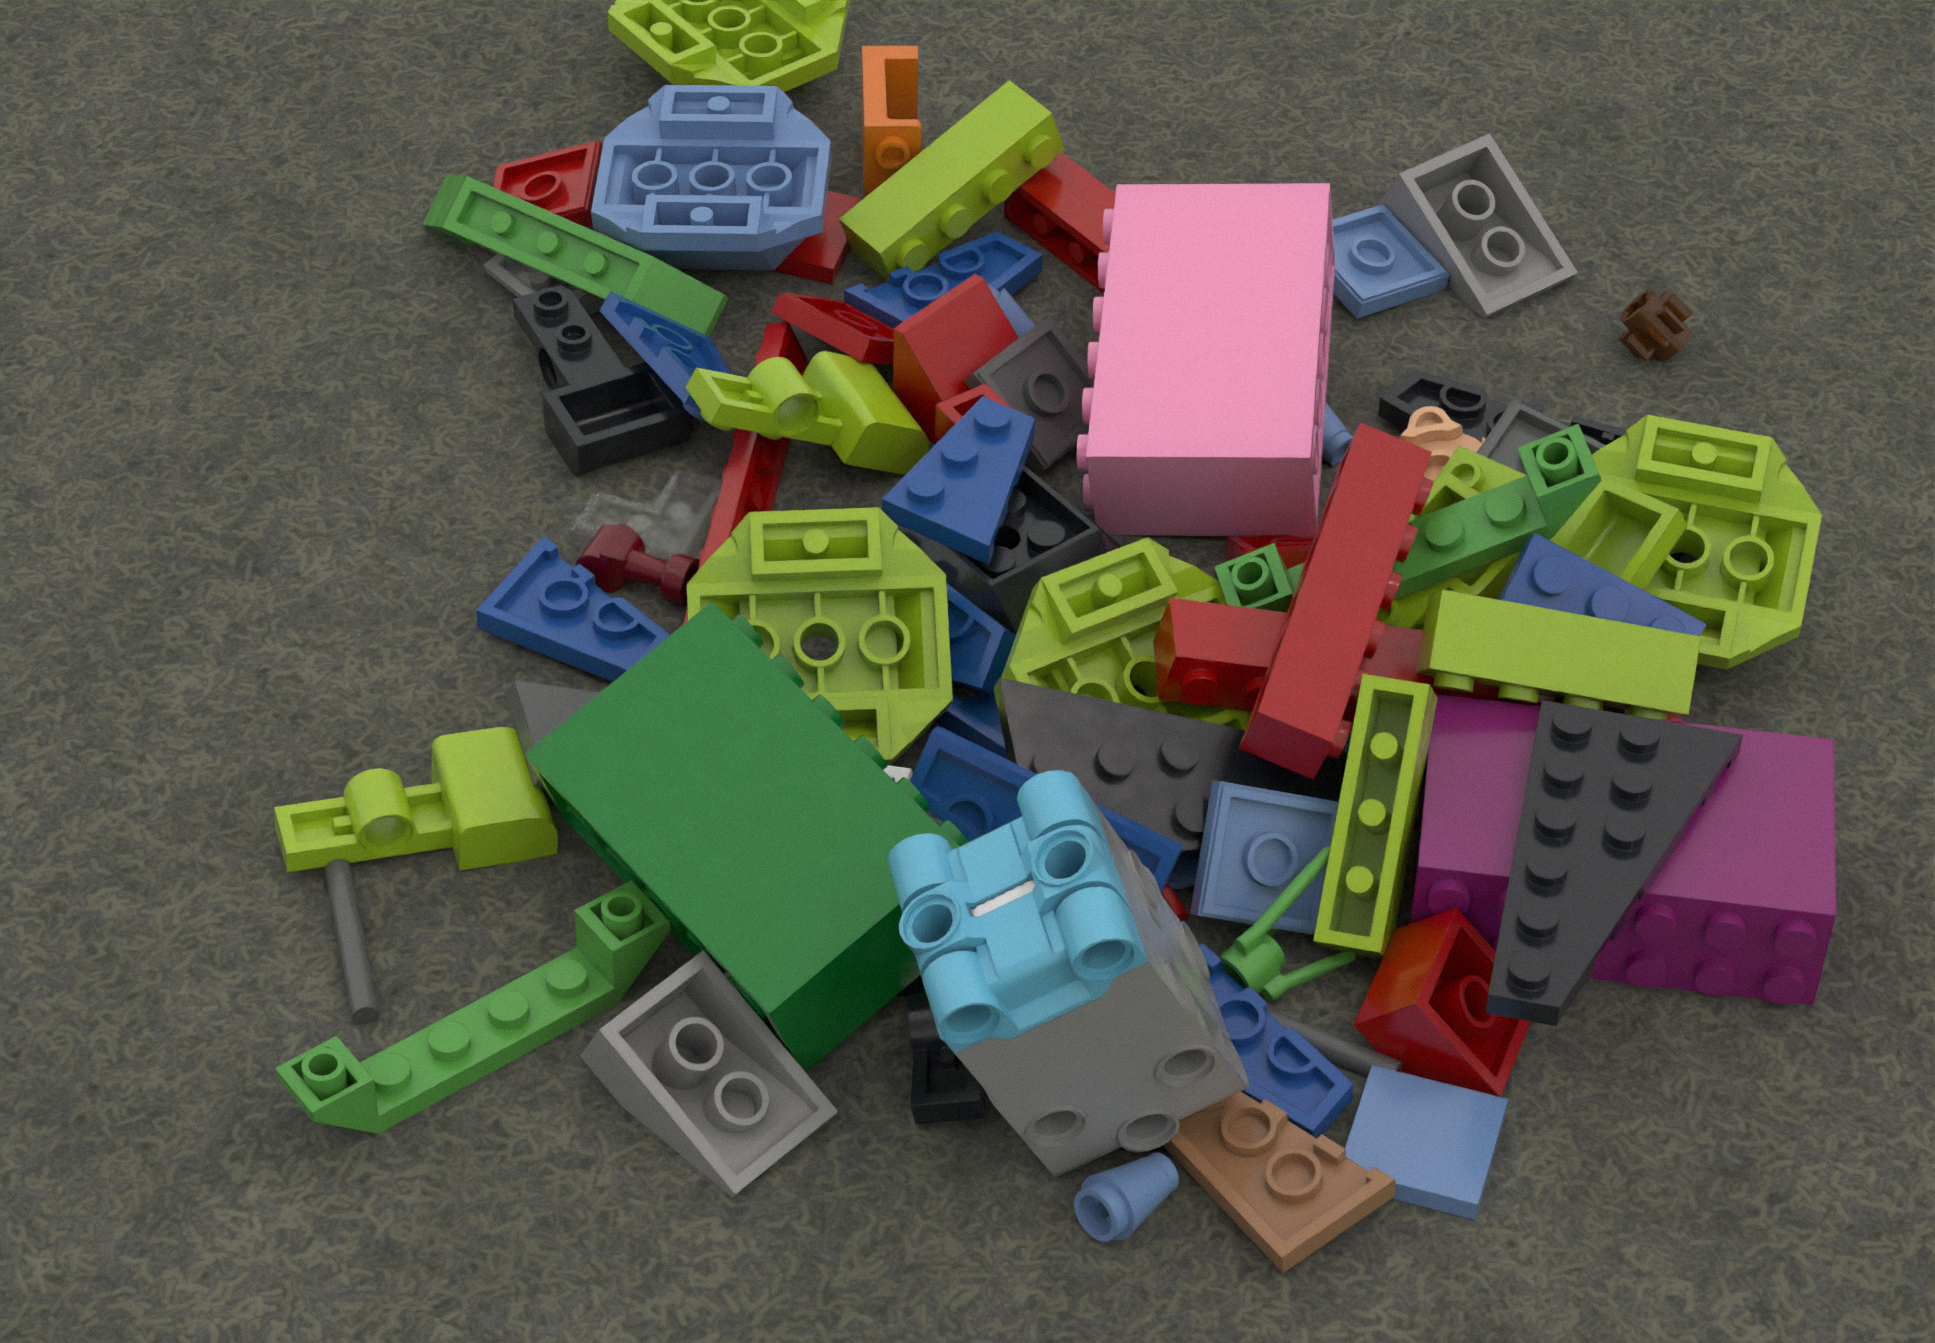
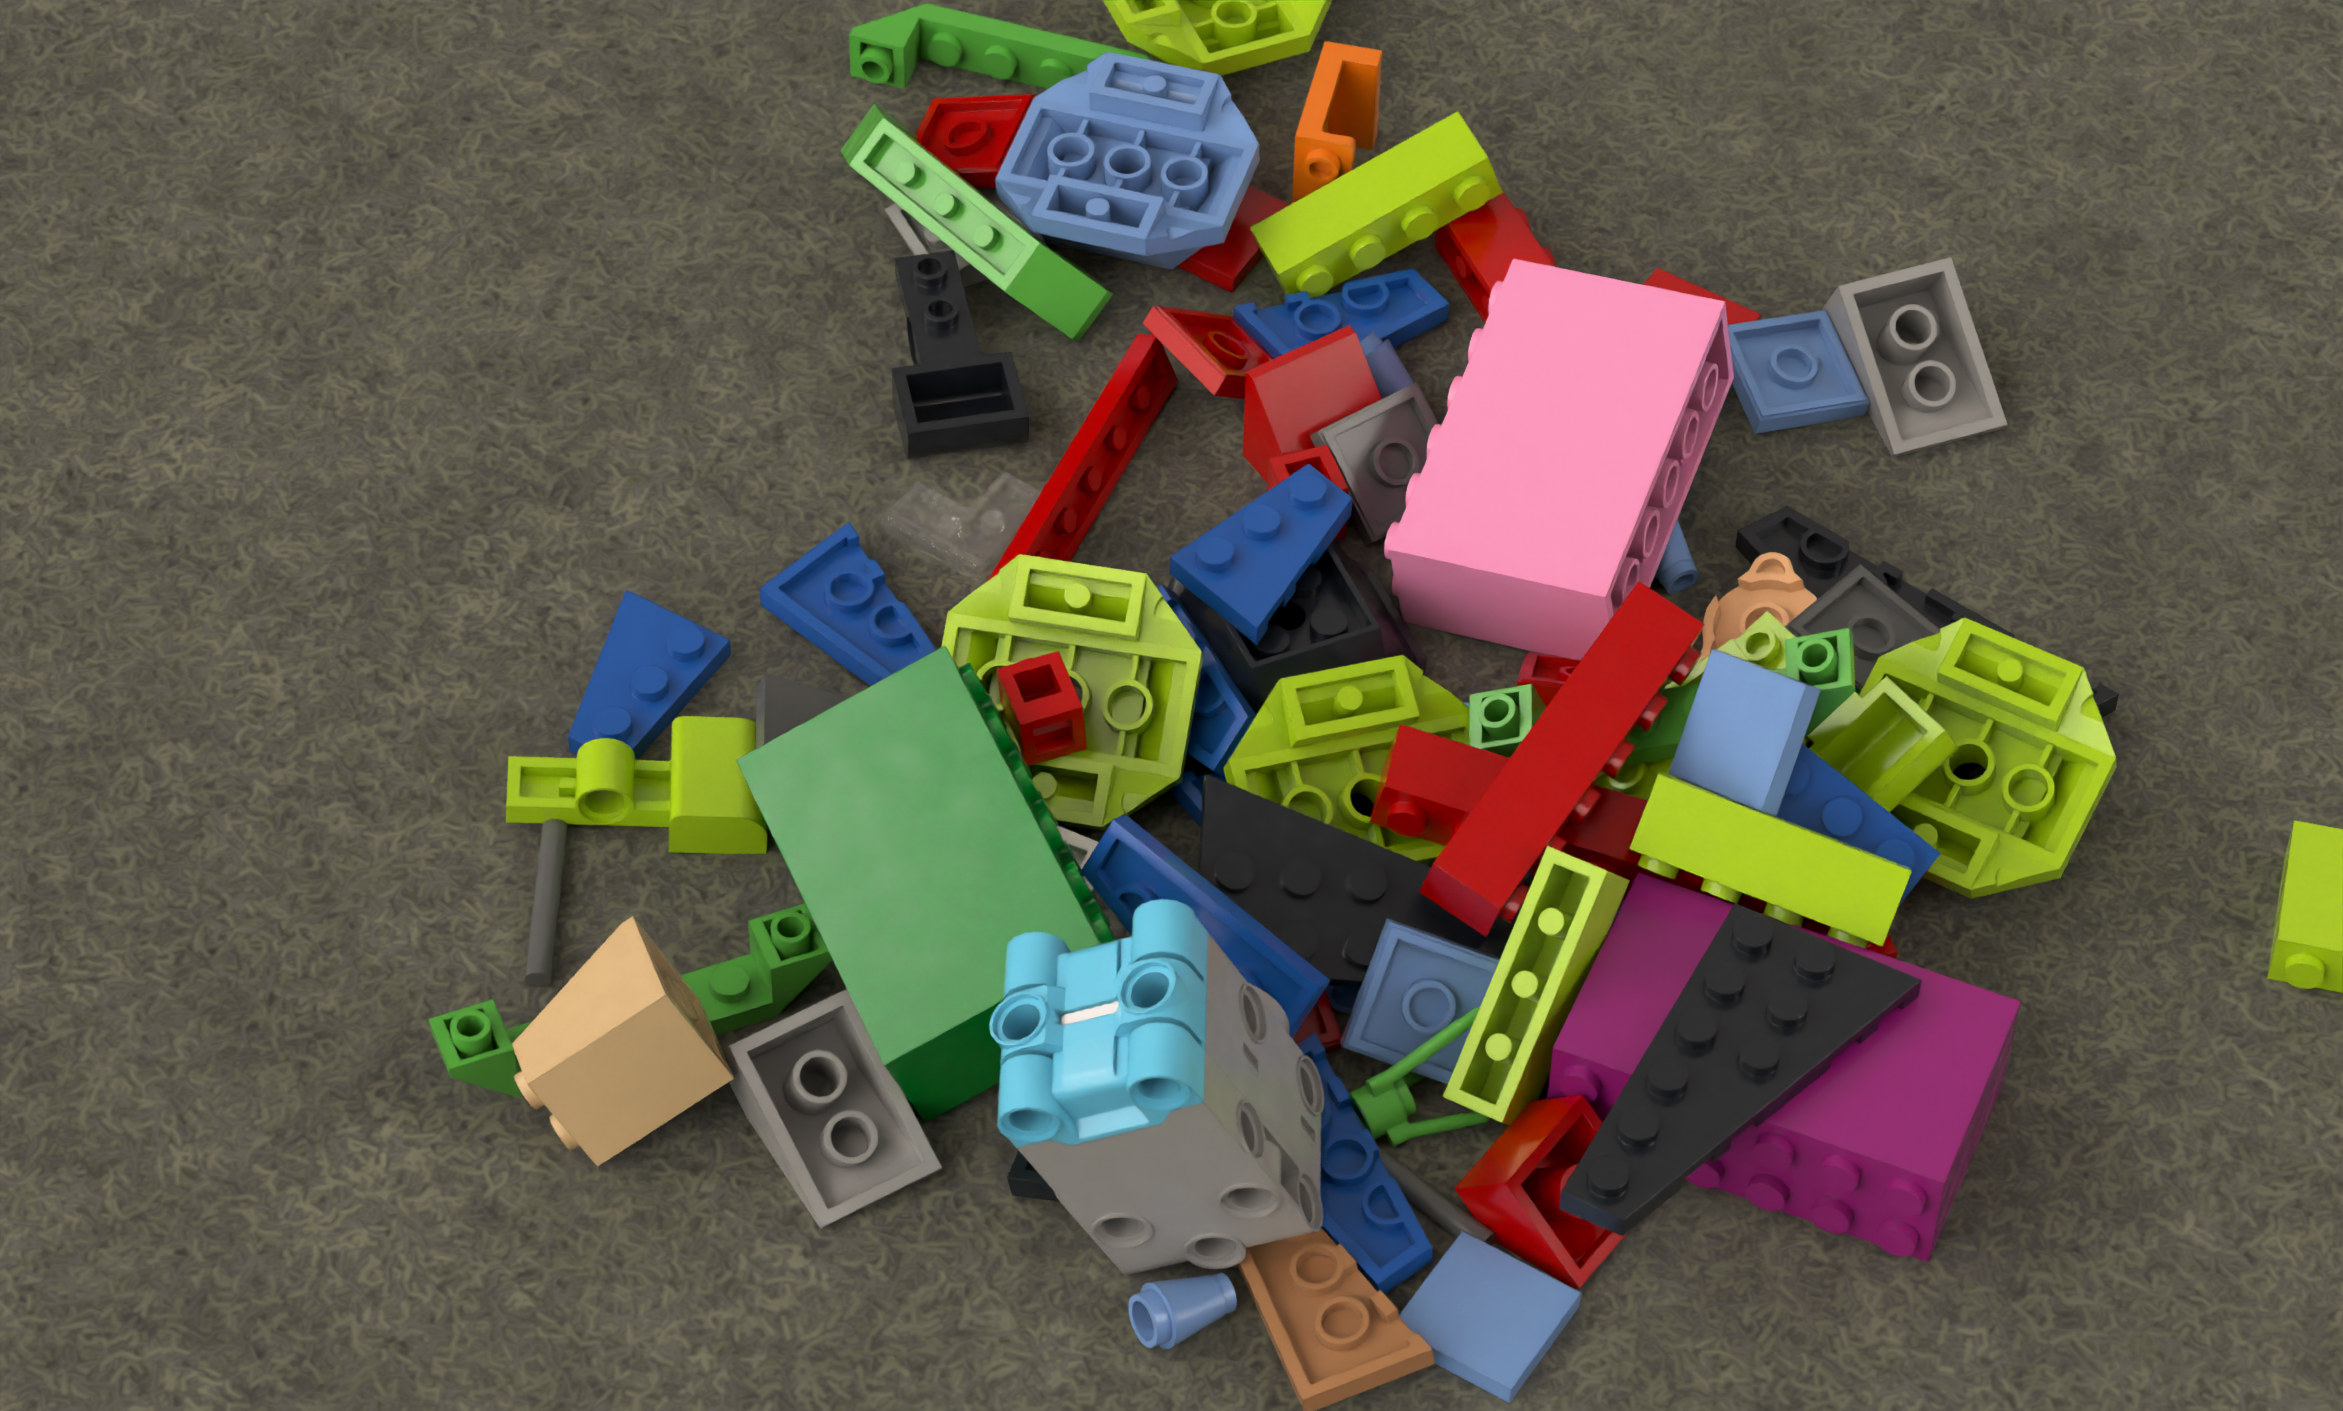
camera: 15 degrees right, 5 degrees up
(384, 709) = (645, 675): none -> blue wing
(443, 128) = (893, 45): none -> bright green slope
(485, 1057) = (619, 1048): none -> tan slope
(619, 556) = (917, 557): dark red leg -> none
(665, 345) = (1040, 356): blue wing -> none
(814, 647) = (1042, 708): none -> red brick
(831, 404) = (1179, 438): lime plate -> none
(1504, 536) = (1744, 731): none -> medium blue tile
(1655, 325) = (2059, 503): reddish brown gear -> none

